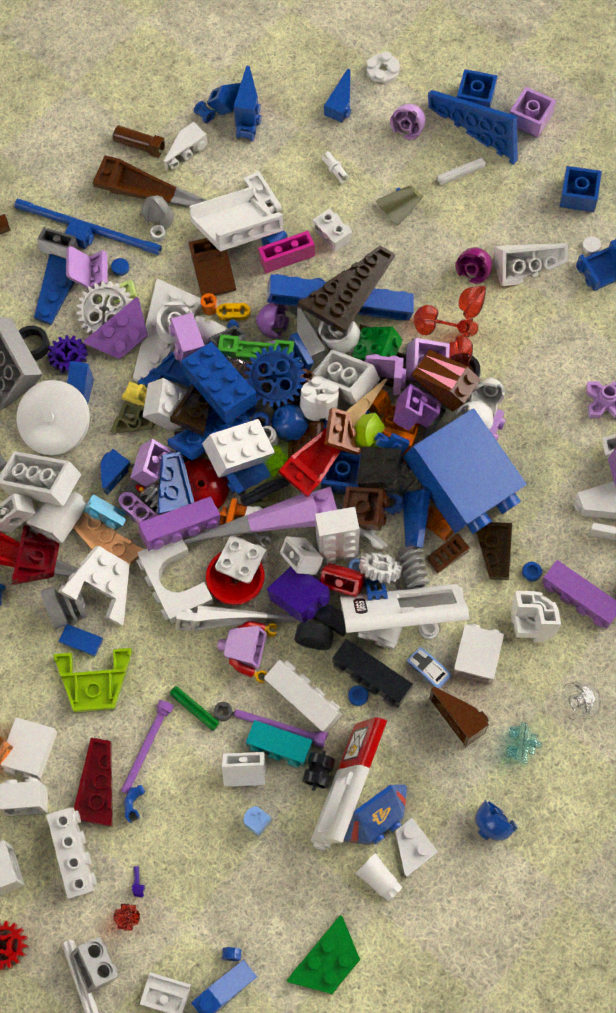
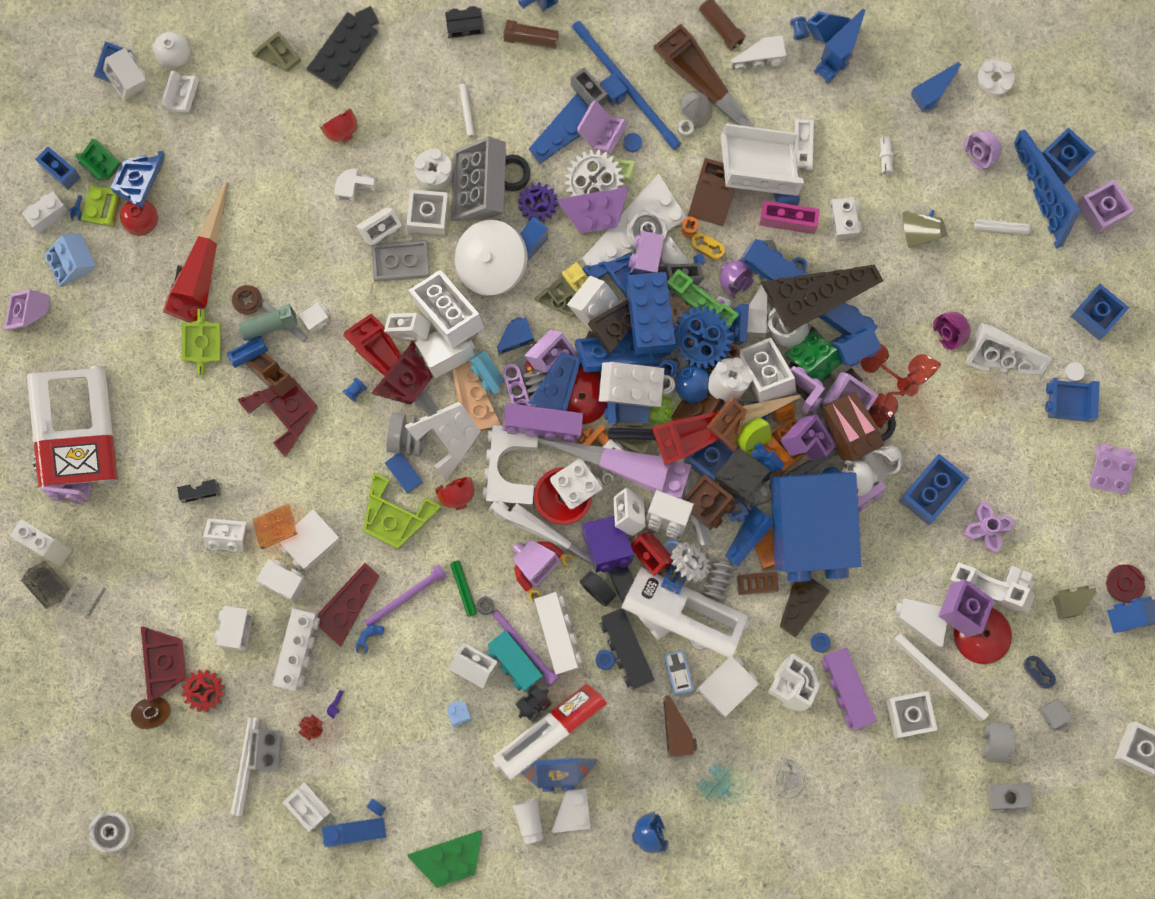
camera: 25 degrees right, 10 degrees up
(139, 629) = (456, 493): none -> red cylinder
(407, 316) = (856, 346): none -> blue brick
(543, 393) = (934, 489): none -> blue brick

